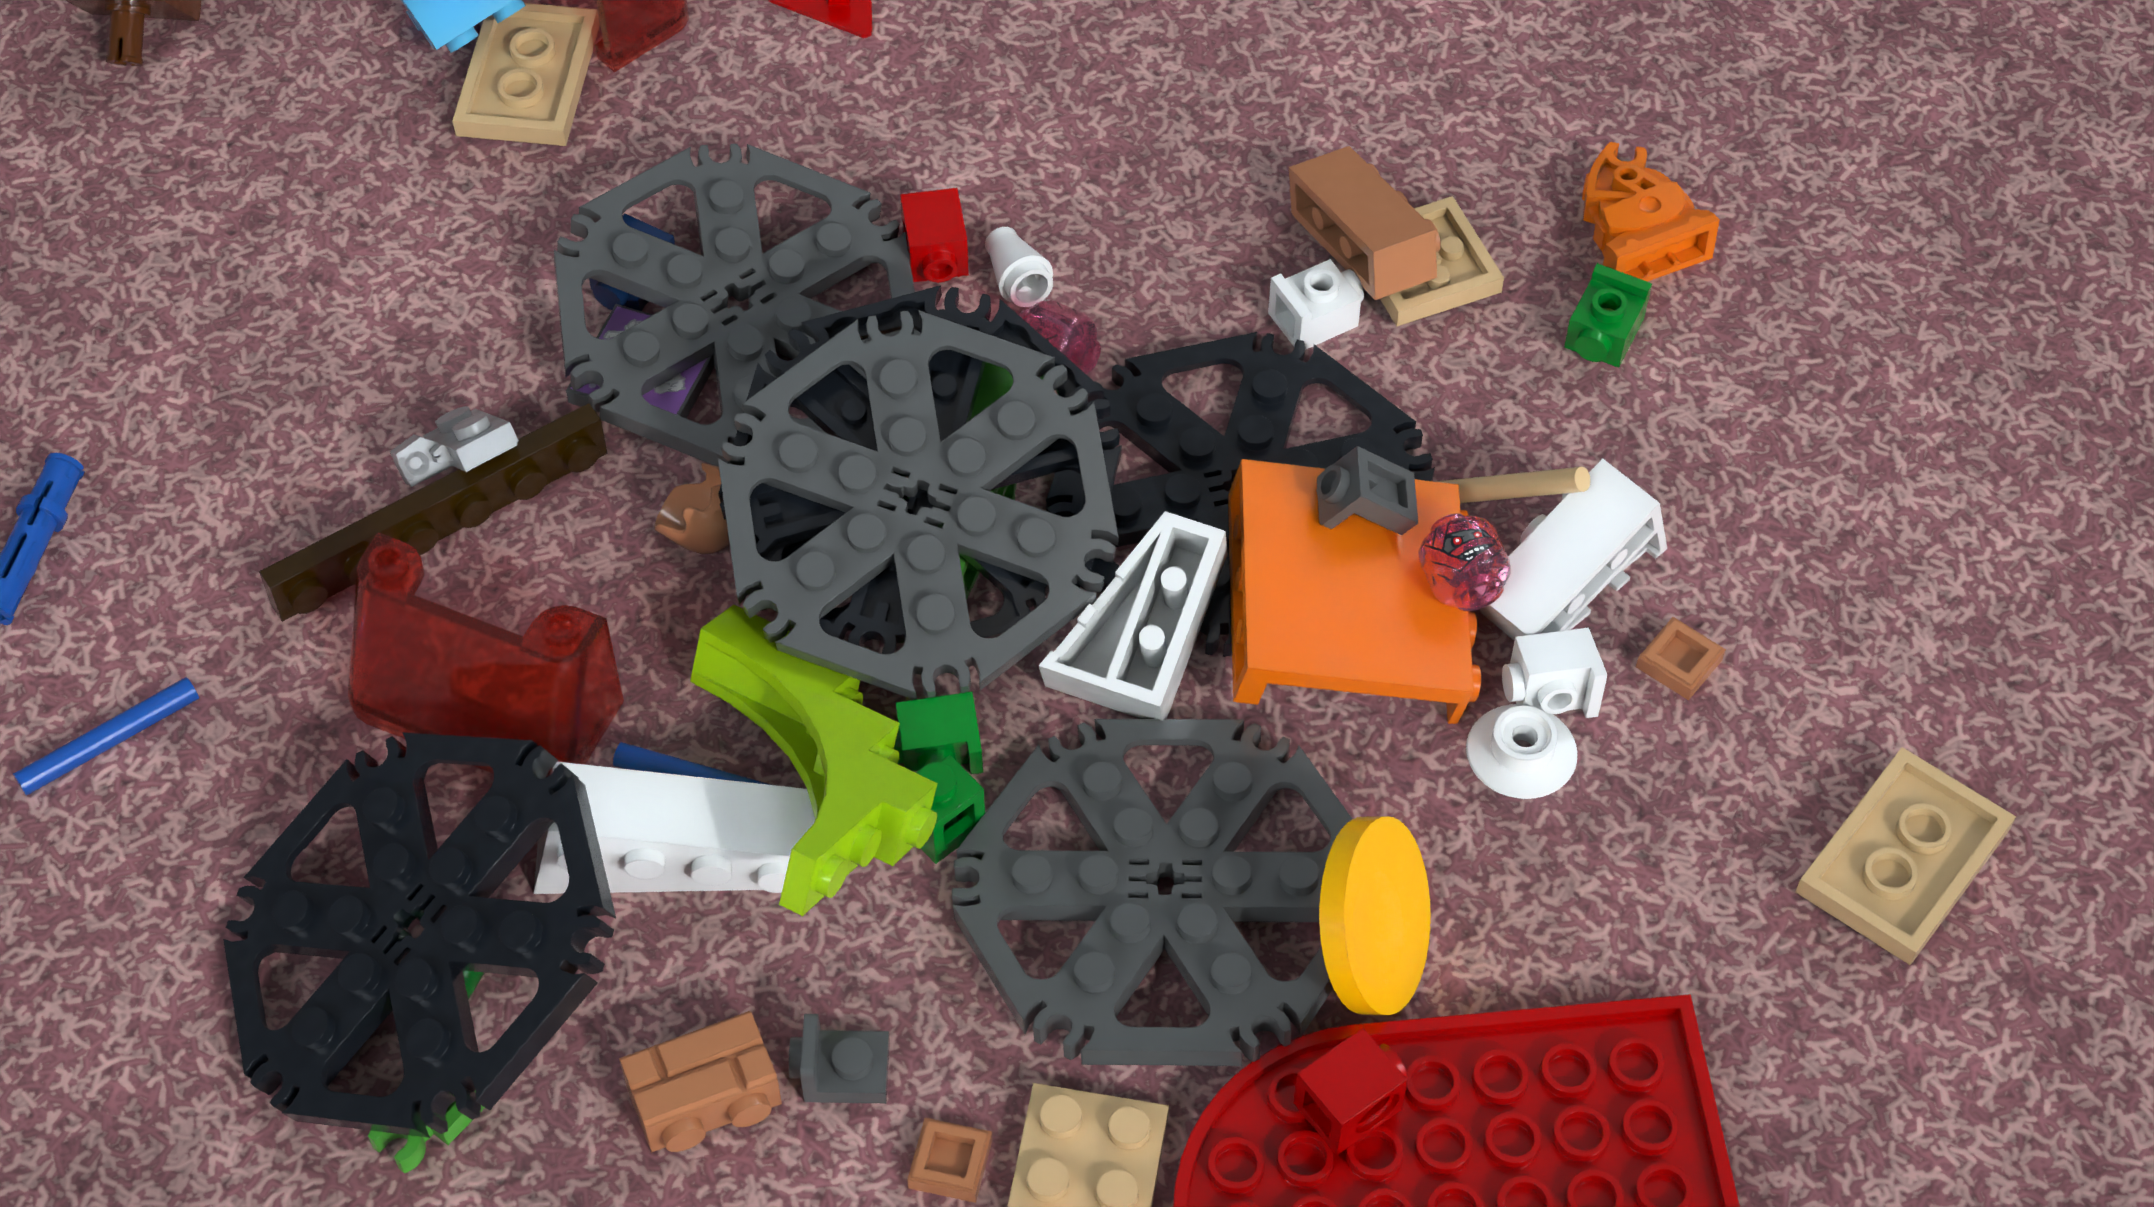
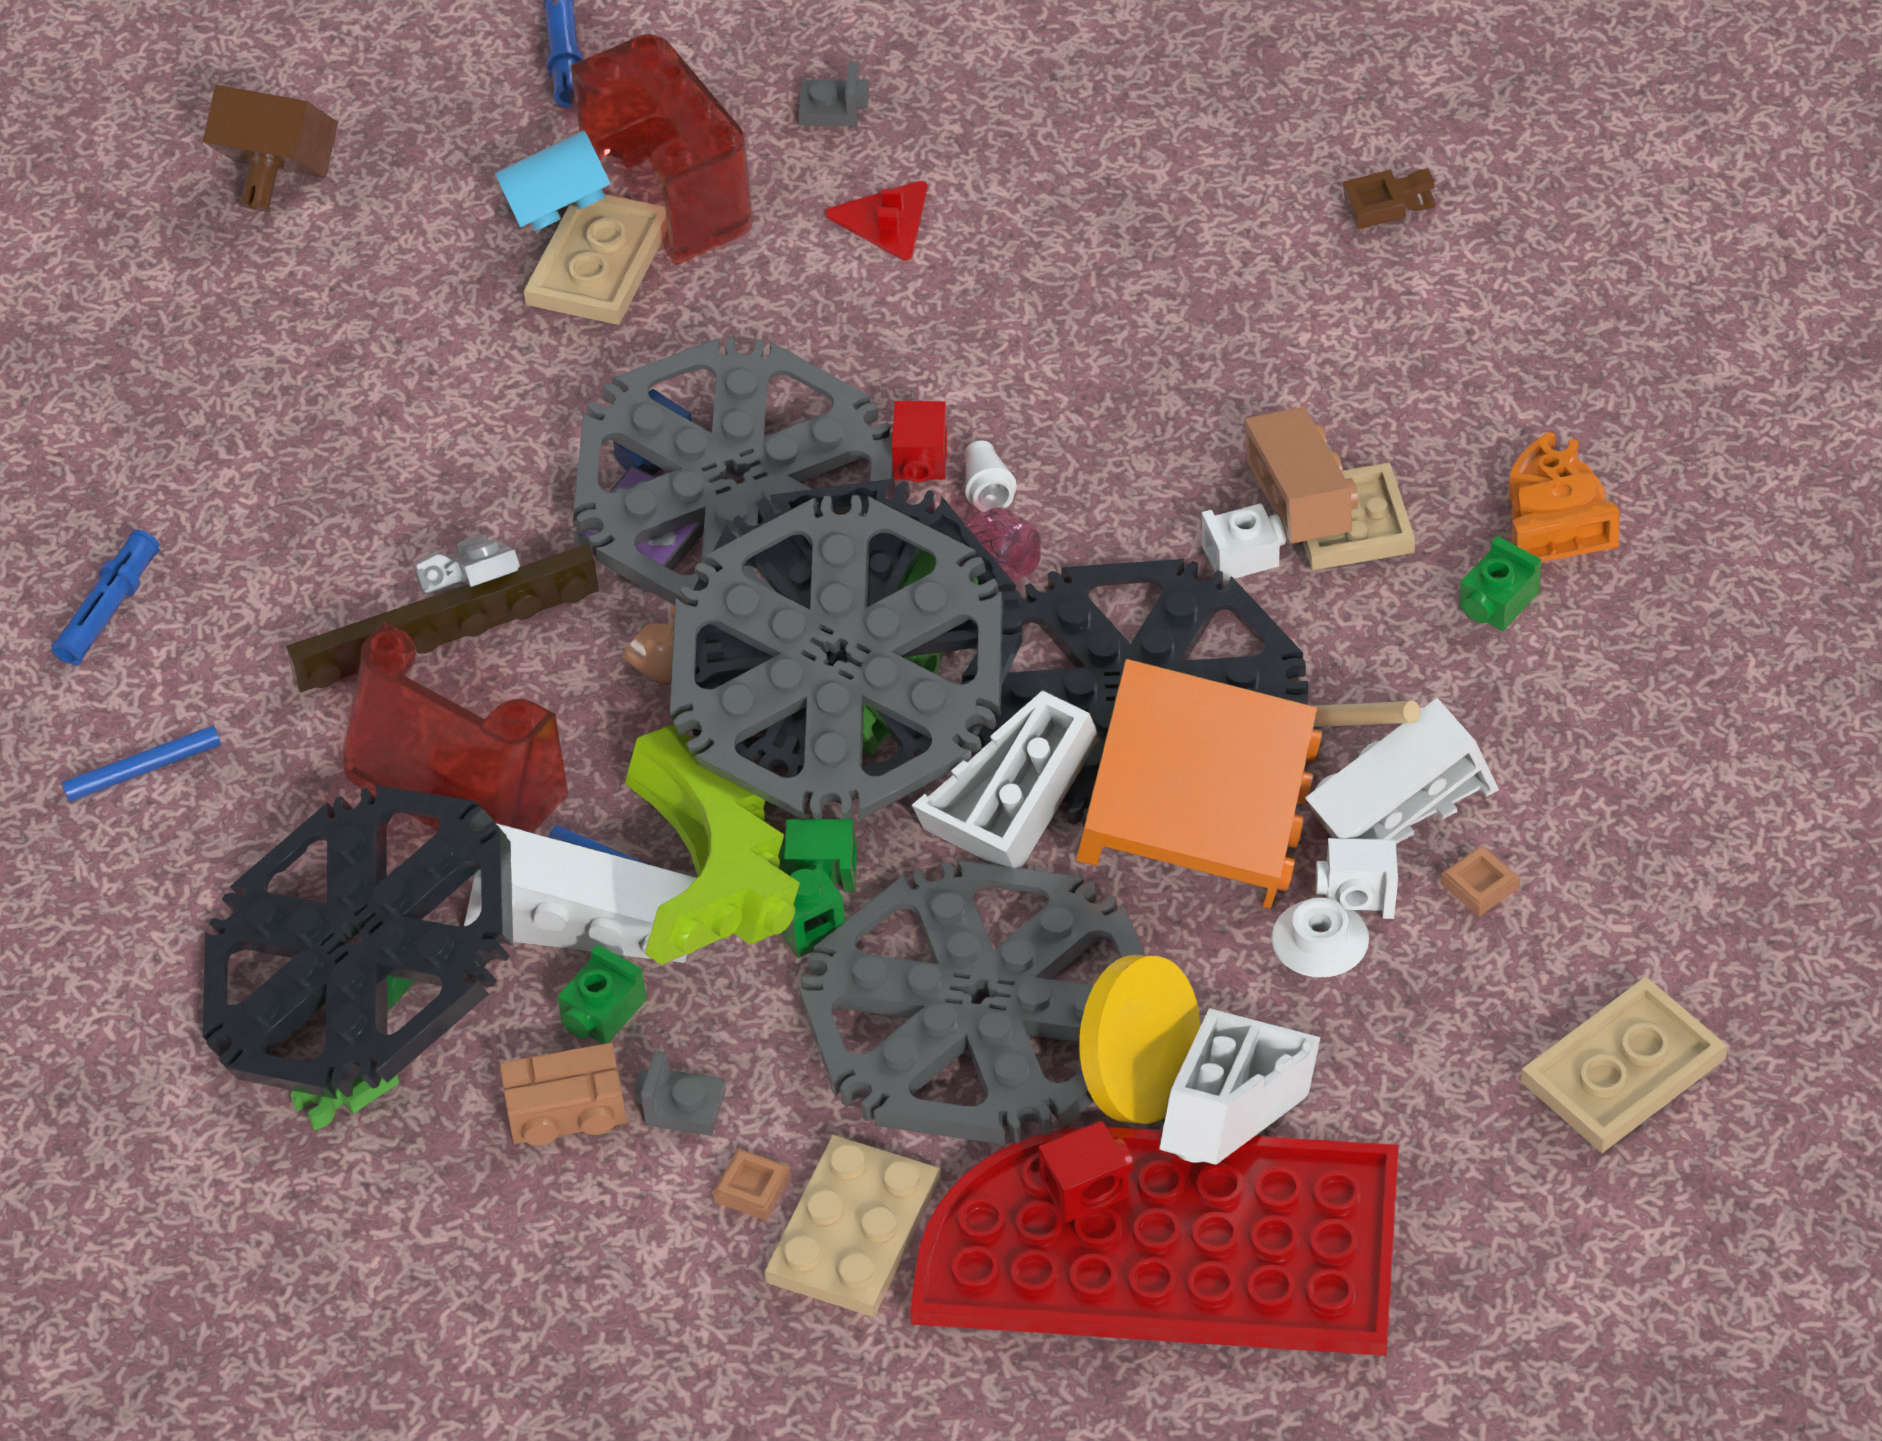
camera: 15 degrees right, 5 degrees down
(721, 974) = (602, 996): none -> green brick
(1368, 488) = (1227, 697): dark grey bracket -> none
(1464, 562) = (1296, 769): clear pink head -> none
(1490, 954) = (1235, 1085): none -> white wedge

